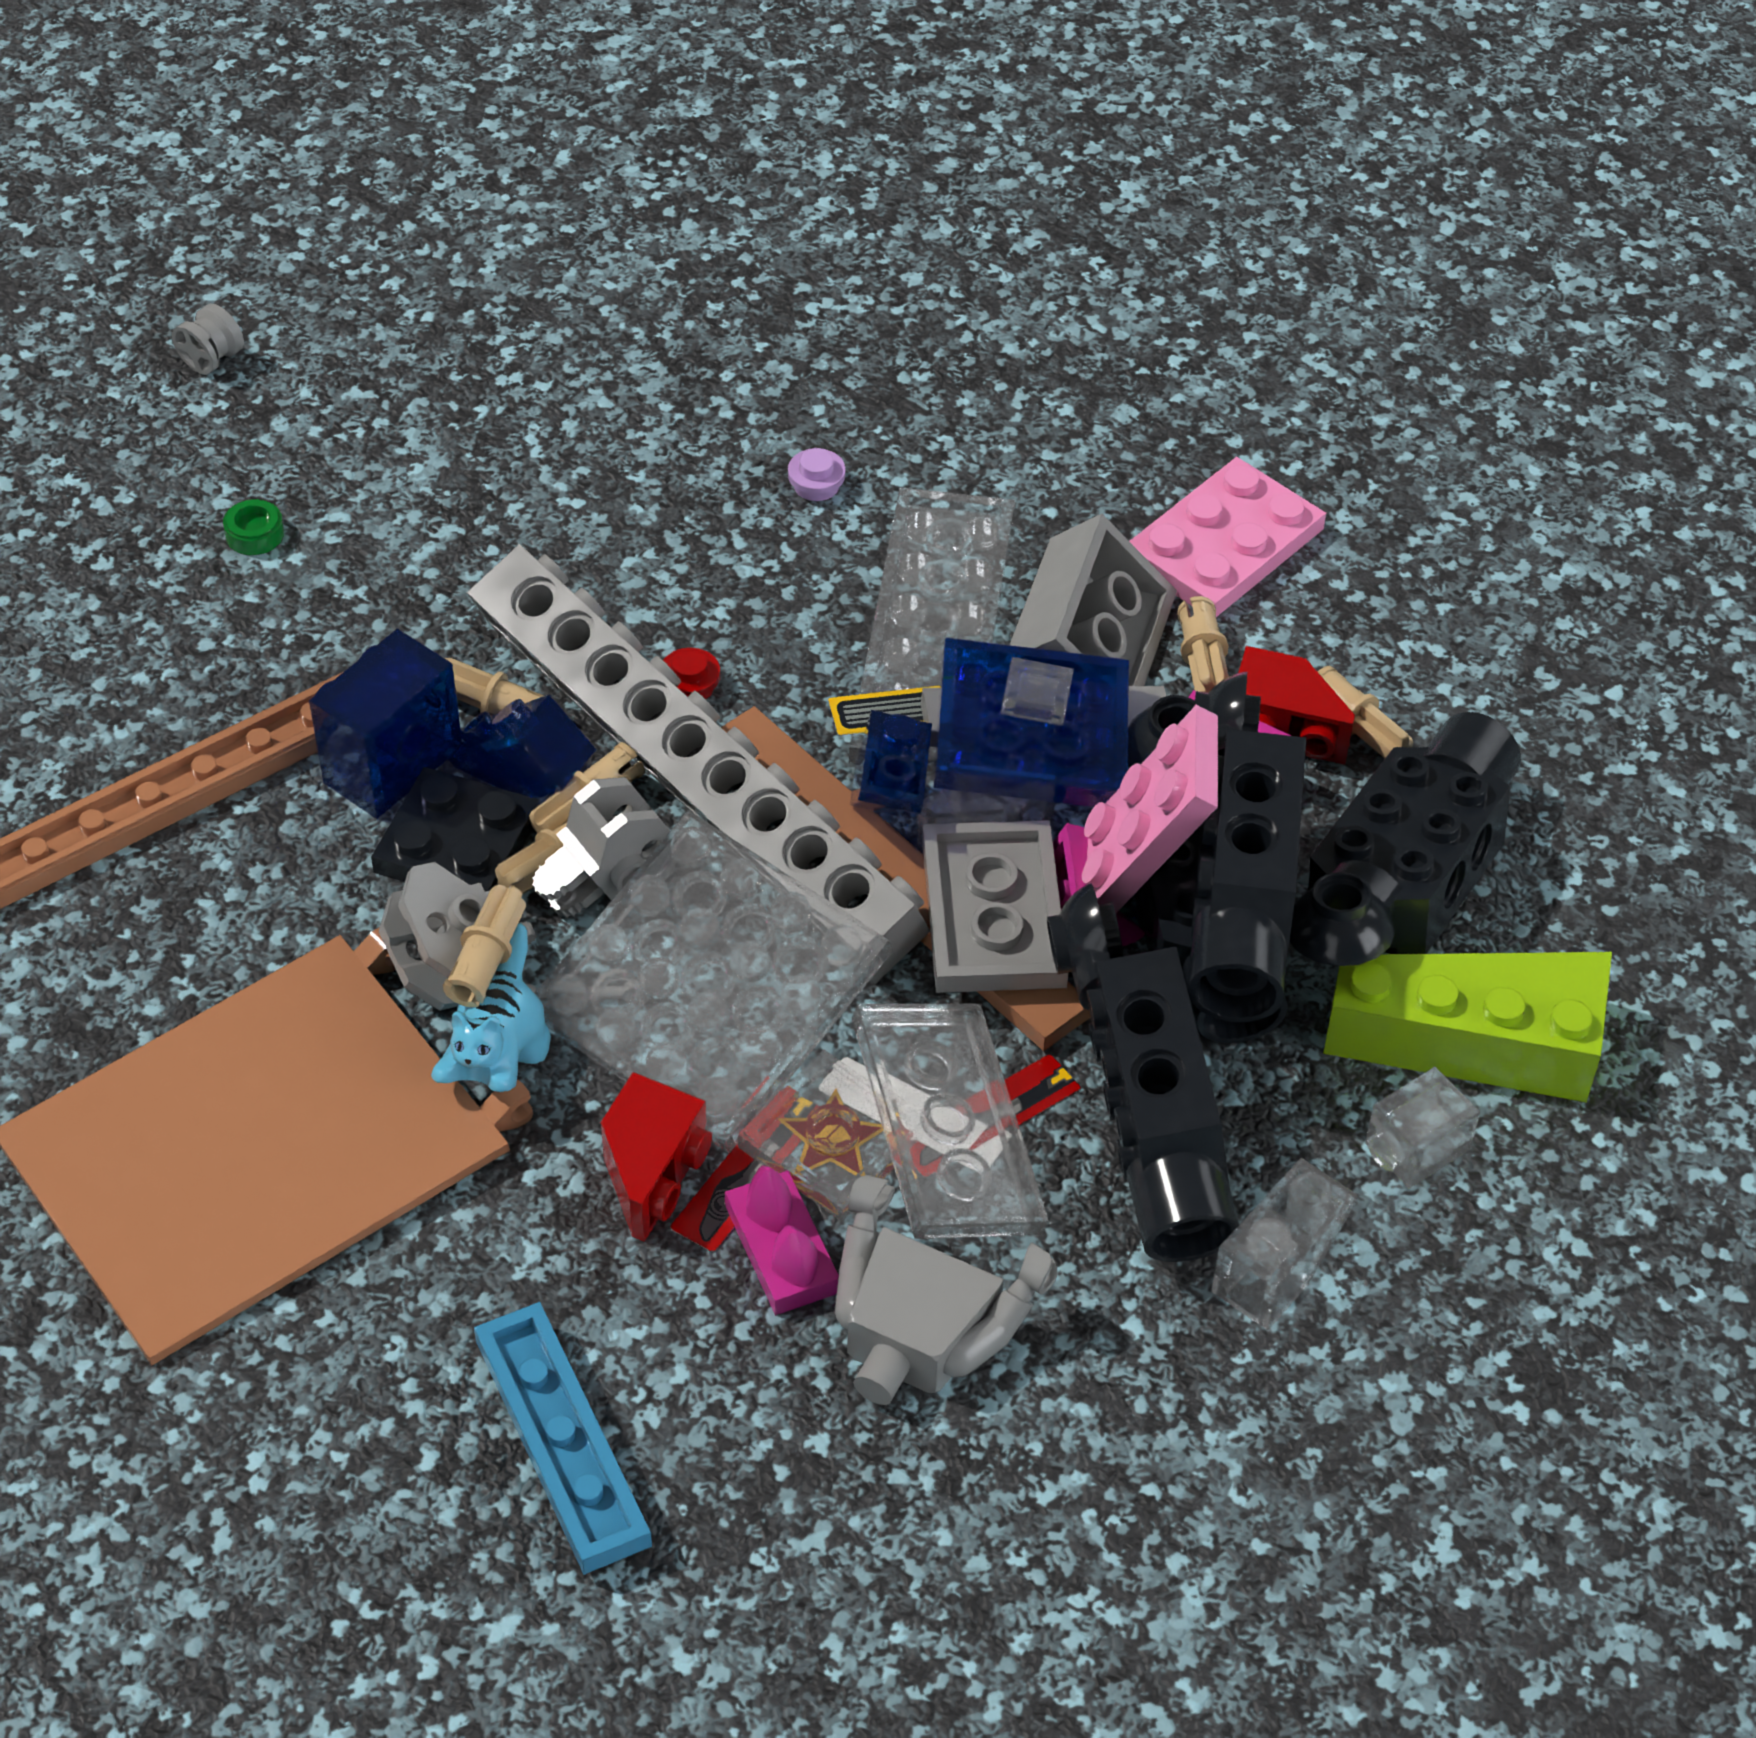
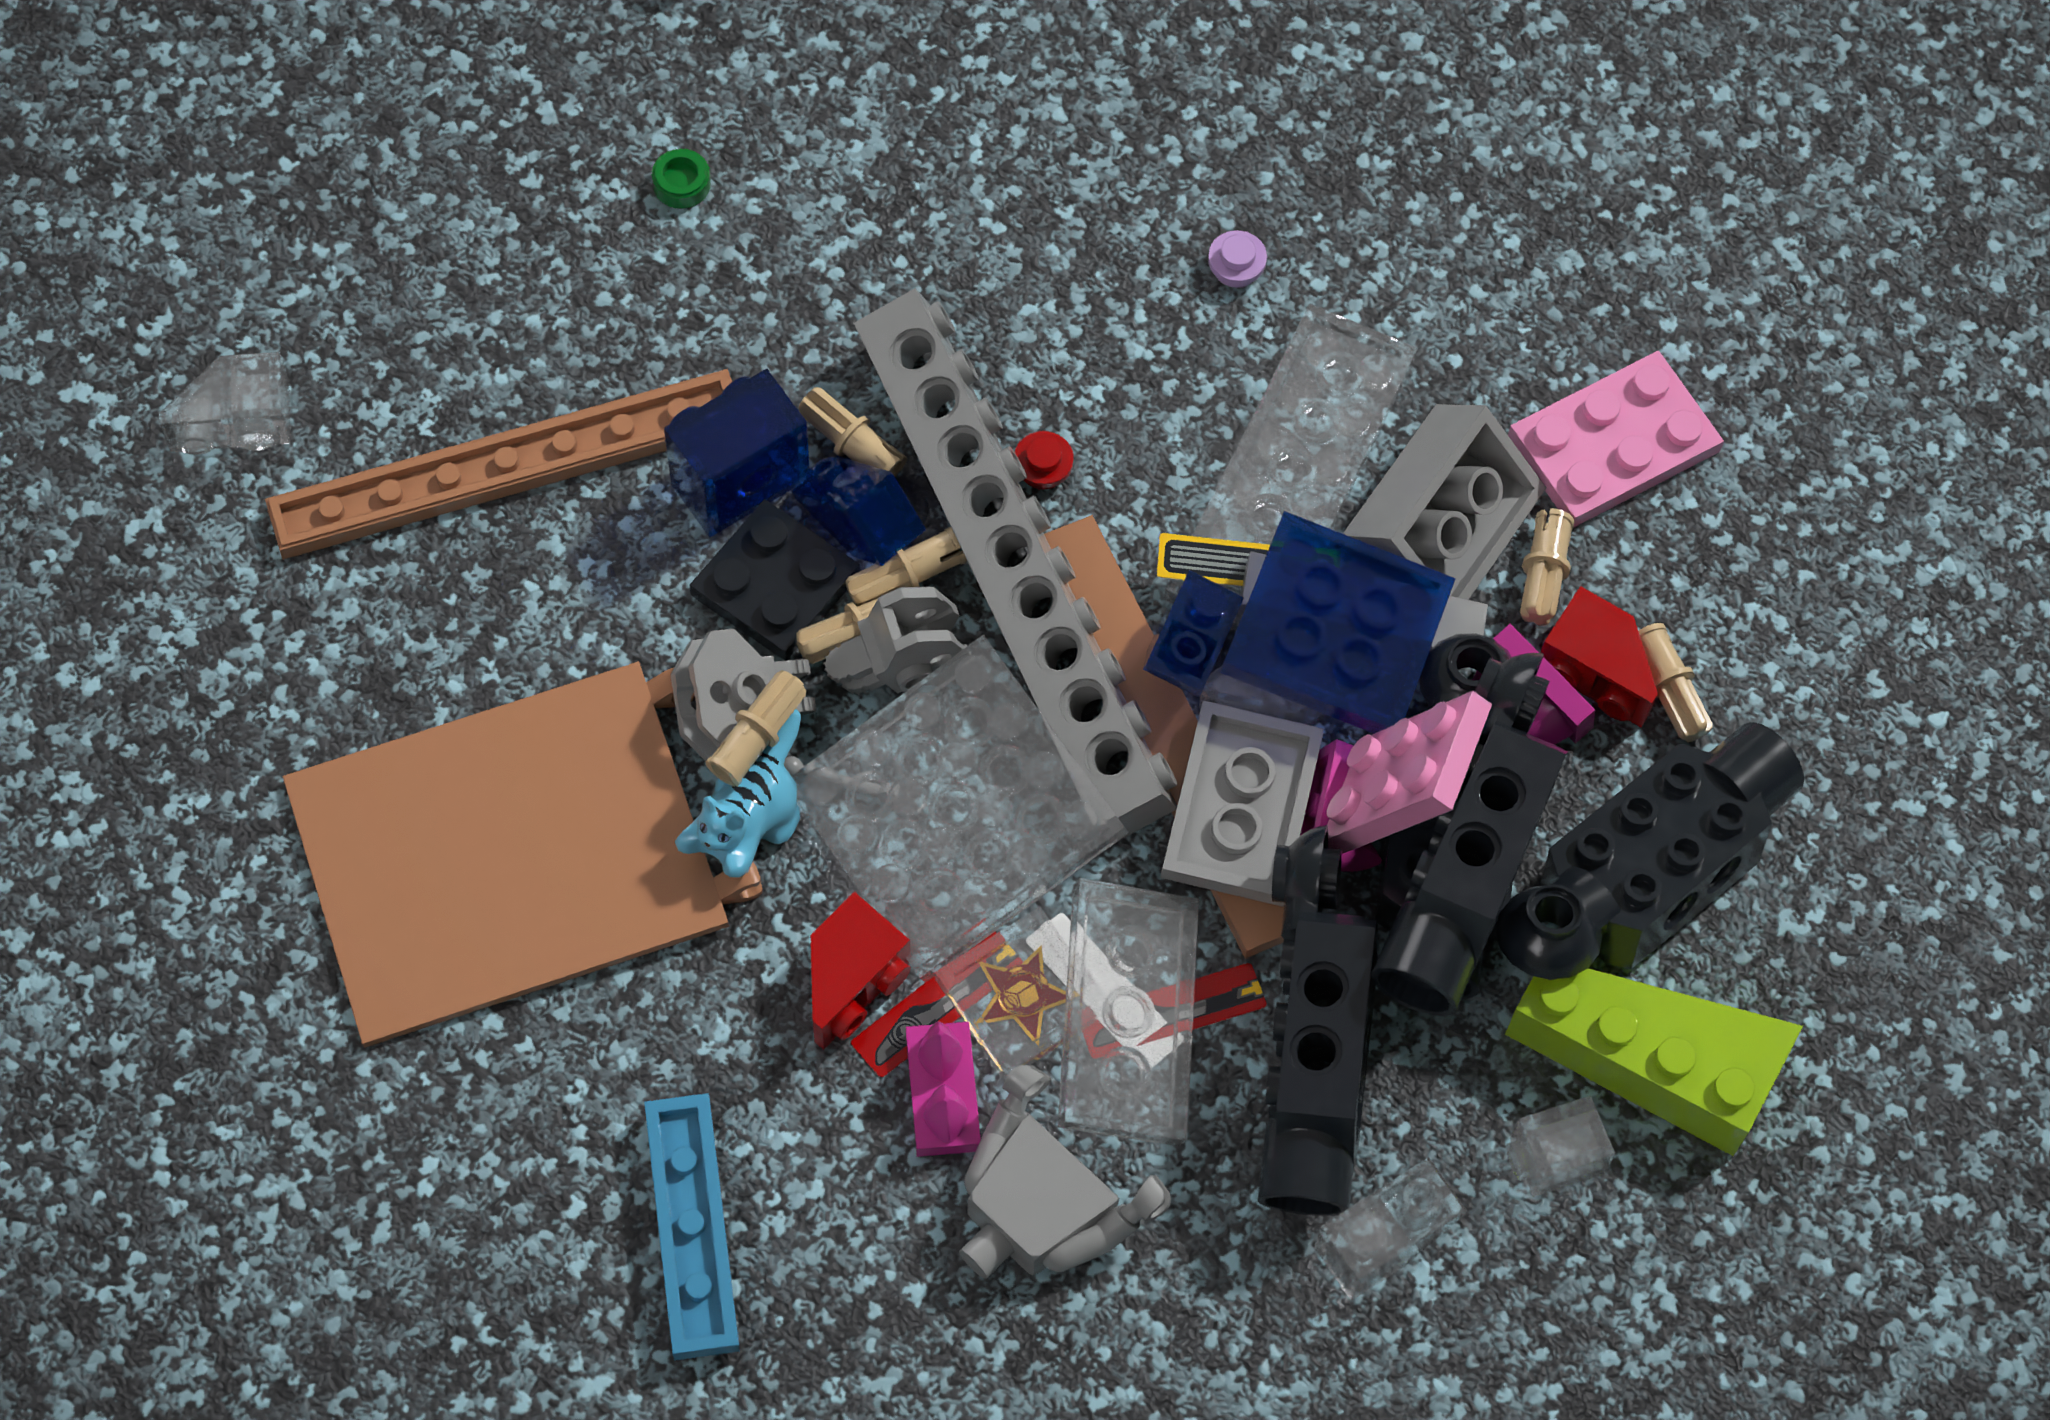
camera: 15 degrees right, 15 degrees up
(1037, 691) = (1349, 598): clear tile -> none

